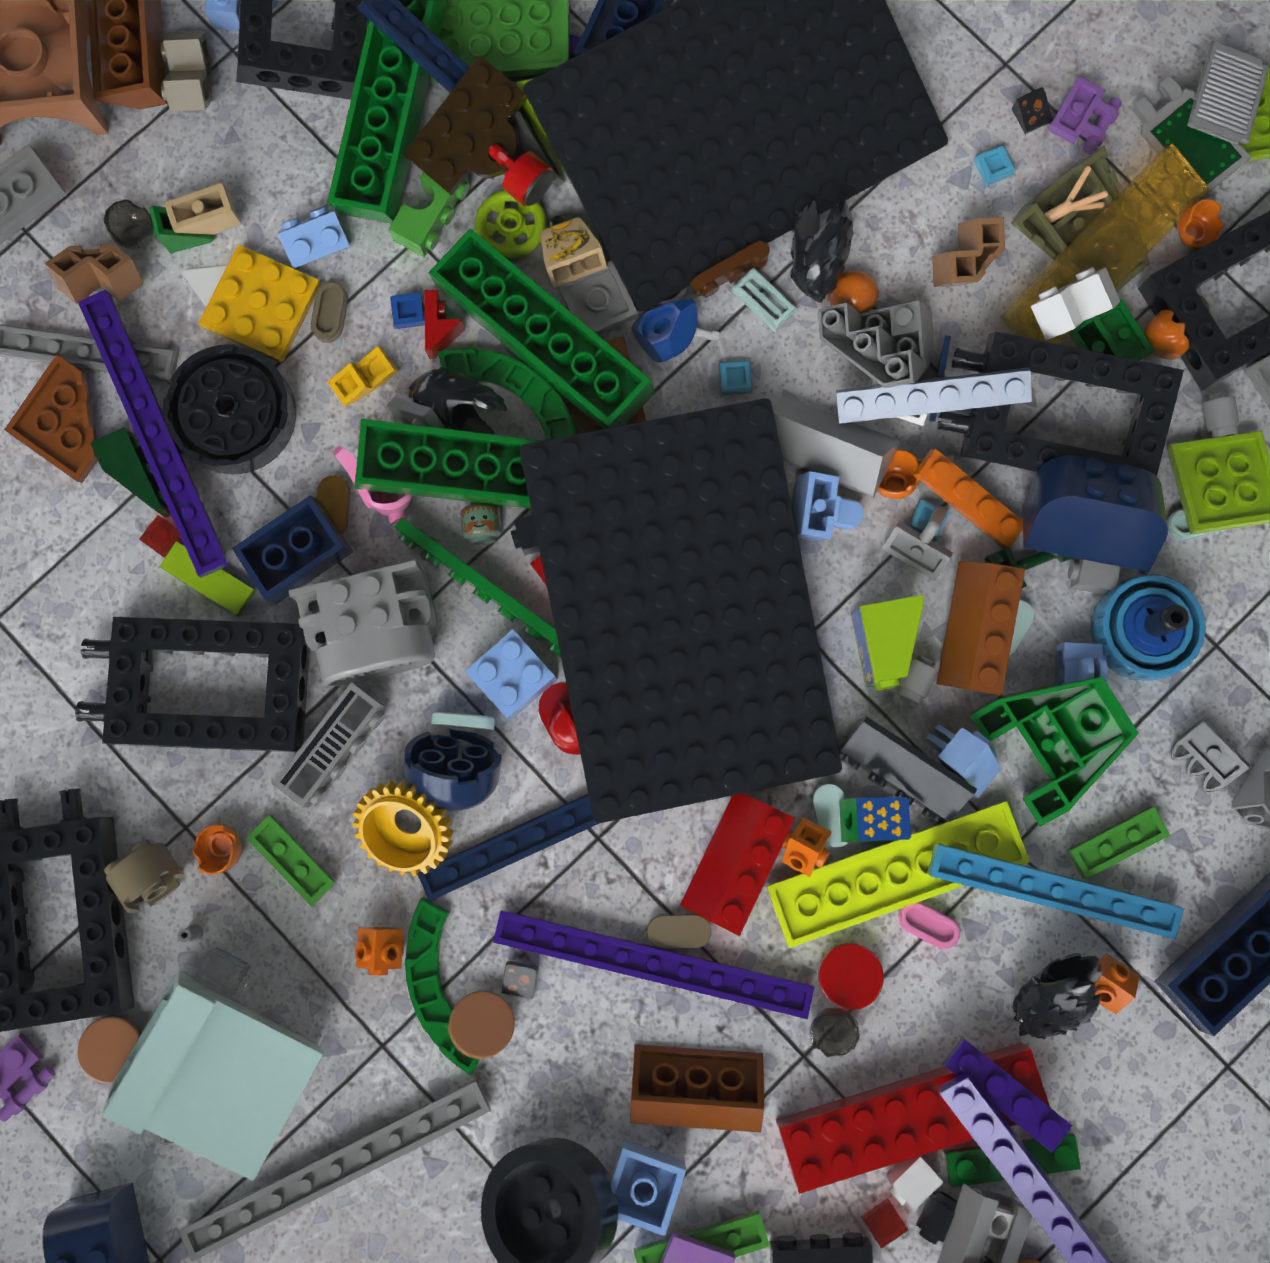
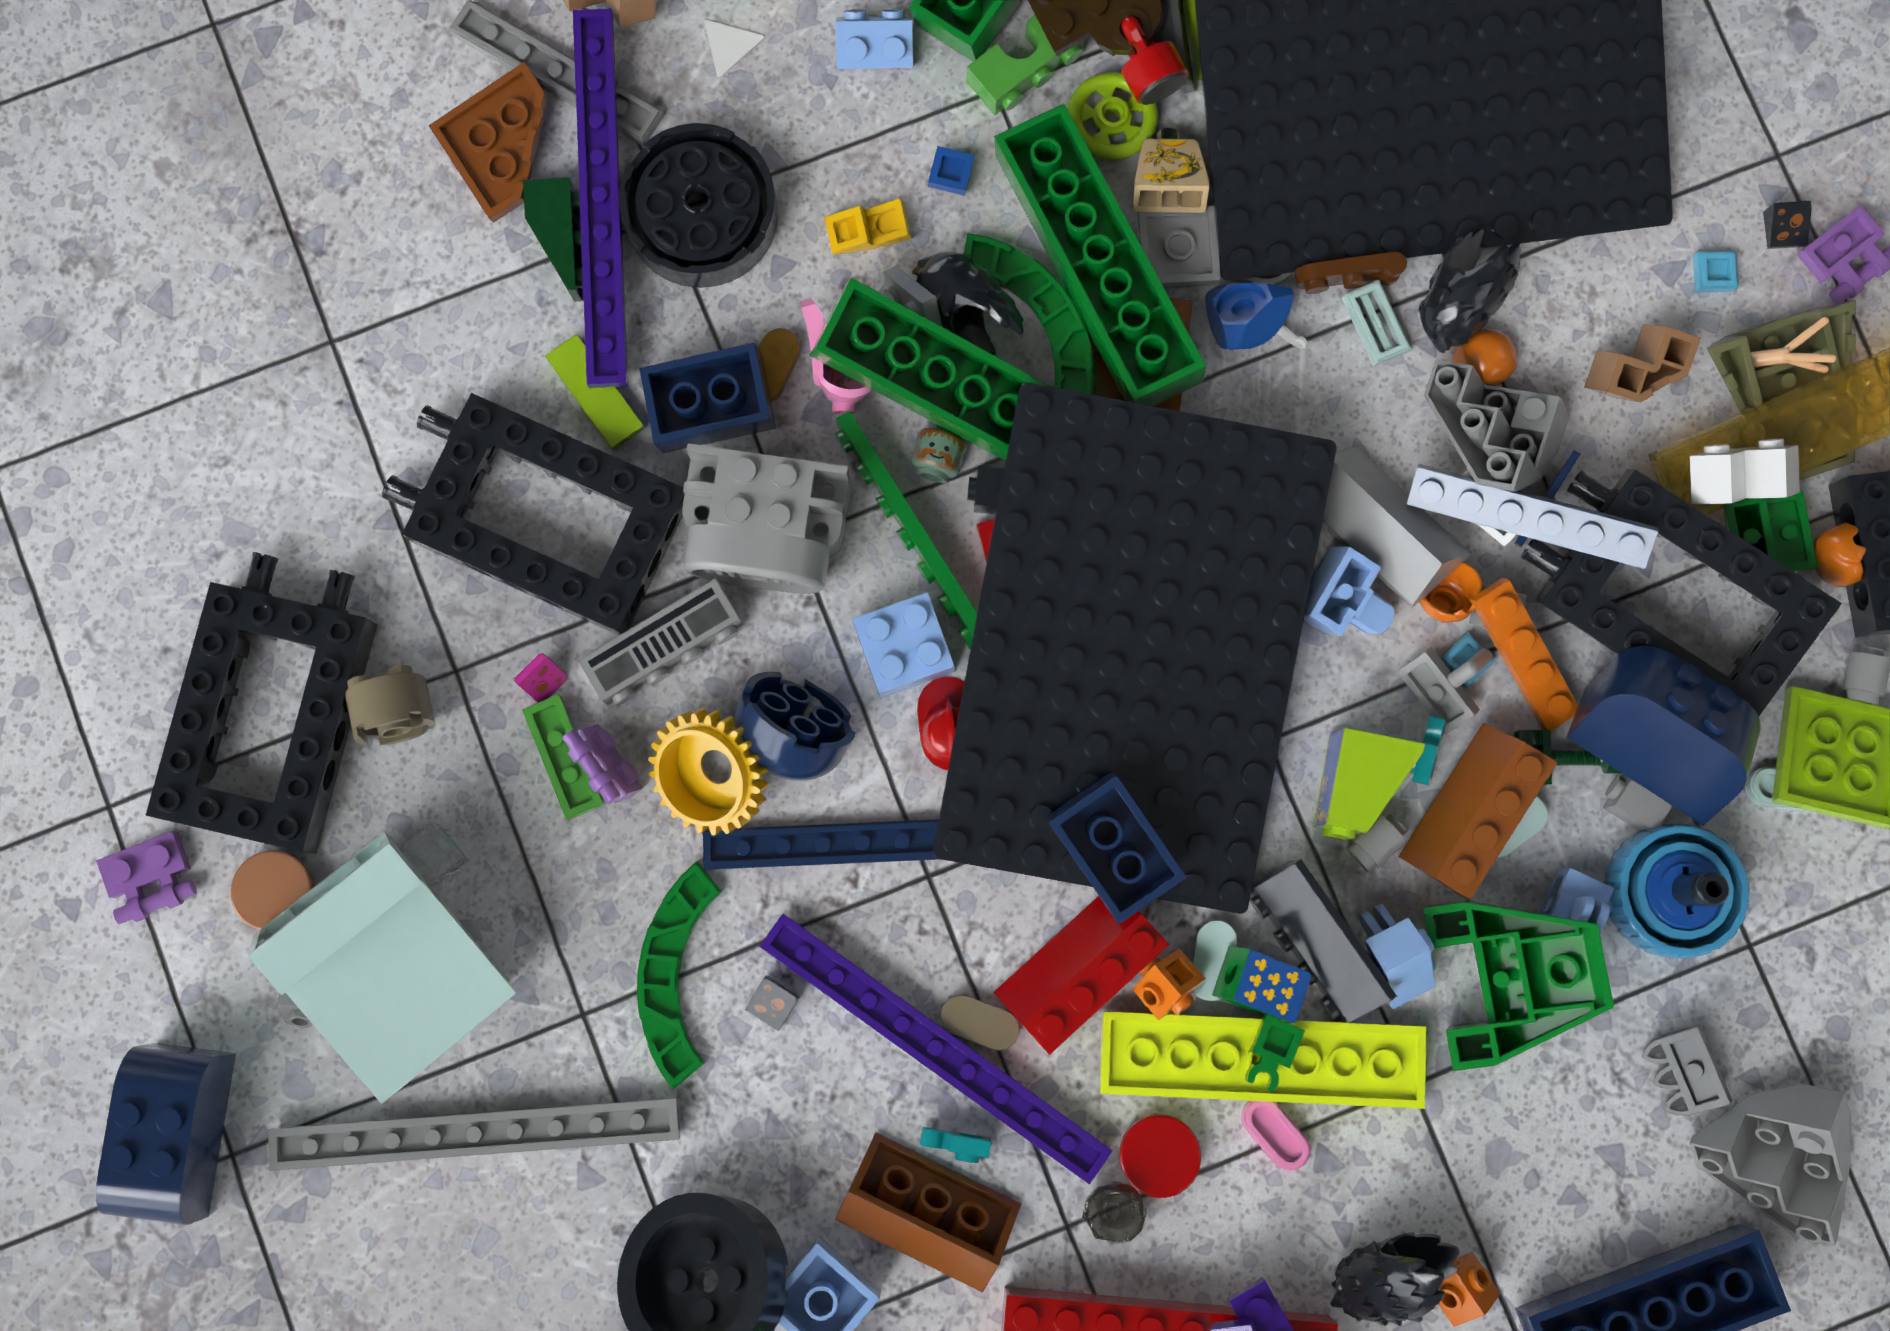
camera: 15 degrees right, 0 degrees up
(161, 536) = (560, 321): clear red plate -> none
(191, 933) = (415, 794): light grey piece -> none
(217, 849) = (484, 709): orange hair -> none
(251, 807) = (541, 678): none -> dark pink slope
(259, 303) = (781, 94): yellow plate -> none
(321, 853) = (603, 764): none -> medium lavender plate
(329, 312) = (858, 136): dark tan tile -> none
(379, 949) = (625, 901): orange brick -> none
(439, 330) = (977, 210): red slope -> none
(463, 720) = (826, 675): light aqua tile -> none
(481, 1024) = (708, 1036): nougat tile -> none
(705, 1028) = (967, 1146): none -> teal plate
(726, 763) = (1115, 847): none -> dark blue brick
(735, 377) = (1305, 402): medium azure tile -> none
(902, 859) = (1275, 1044): none -> green plate
(929, 610) = (1425, 765): none -> teal plate
(1055, 891) = (1441, 1154): dark azure plate -> none
(1118, 842) = (1538, 1129): bright green plate -> none

